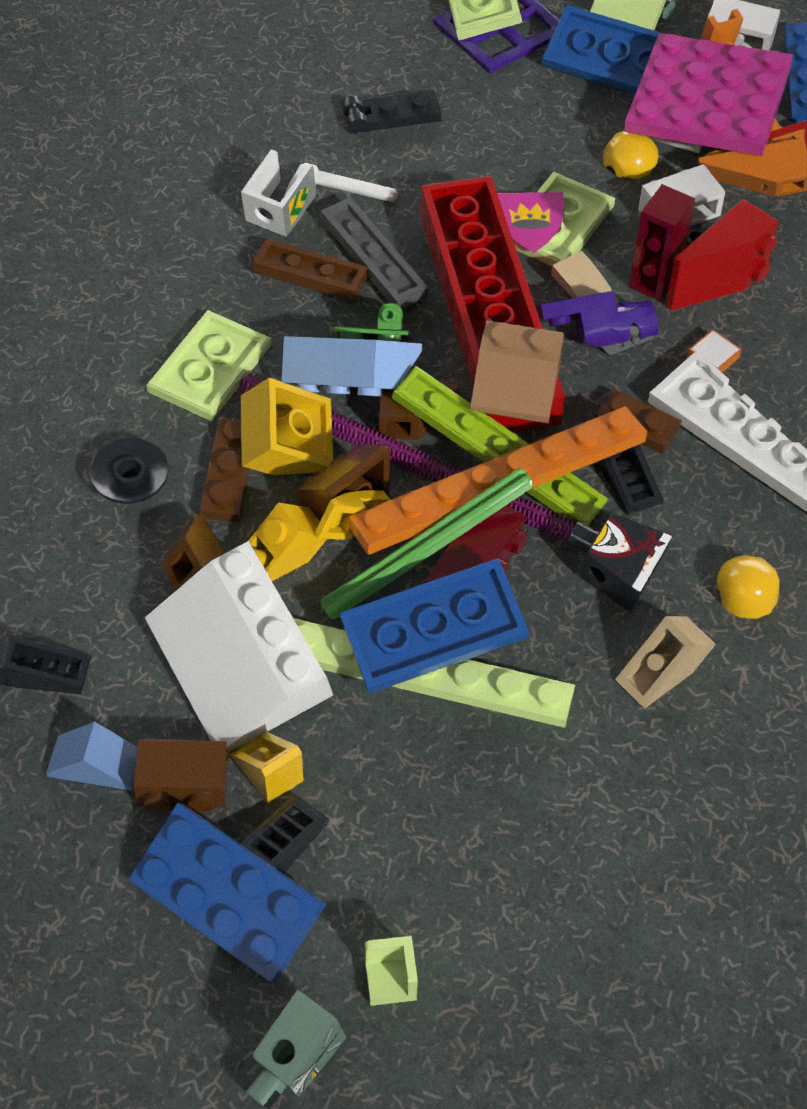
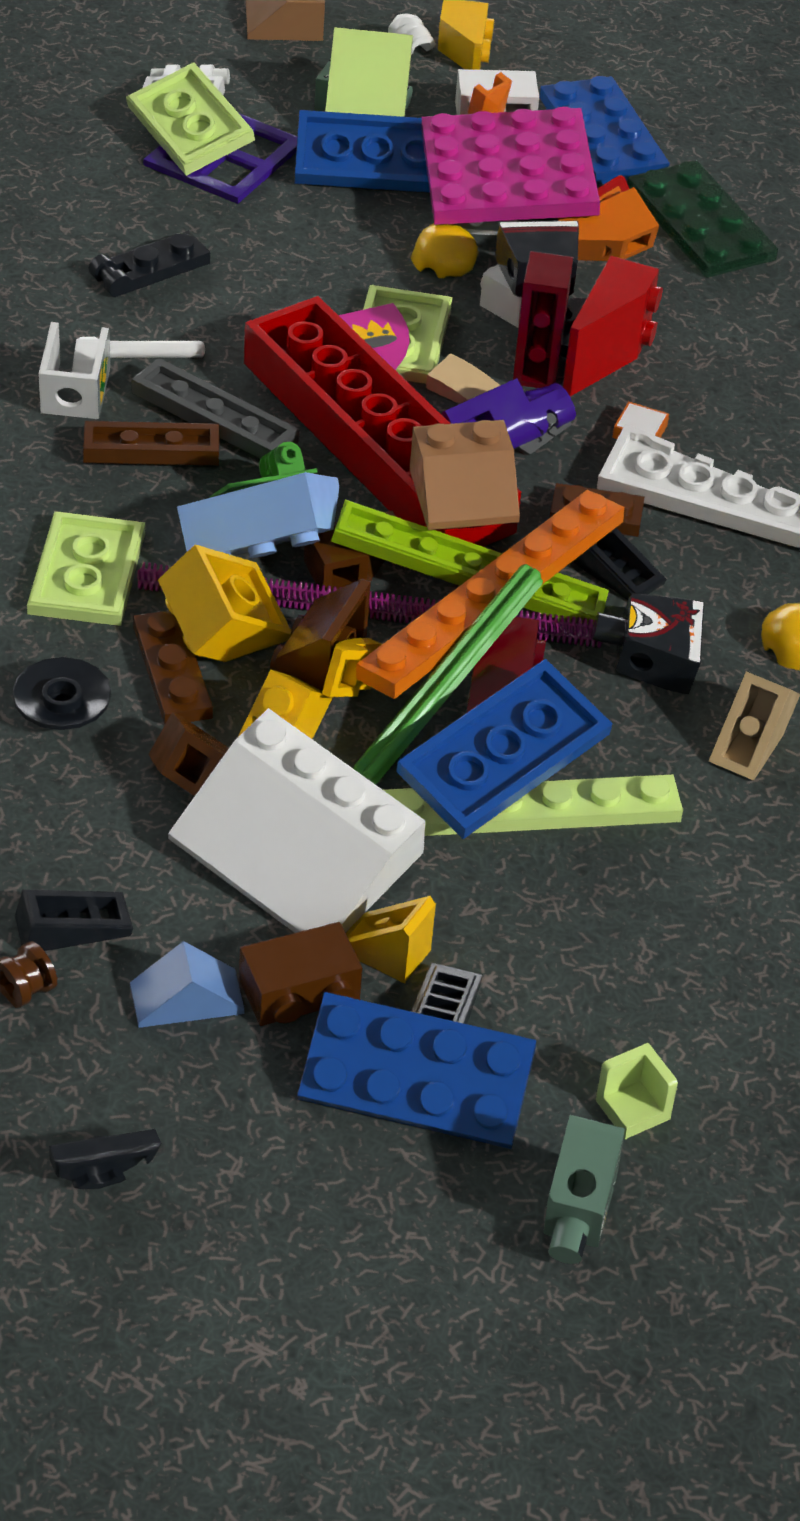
camera: 25 degrees left, 10 degrees down
(697, 176) = (520, 237): none -> black torso

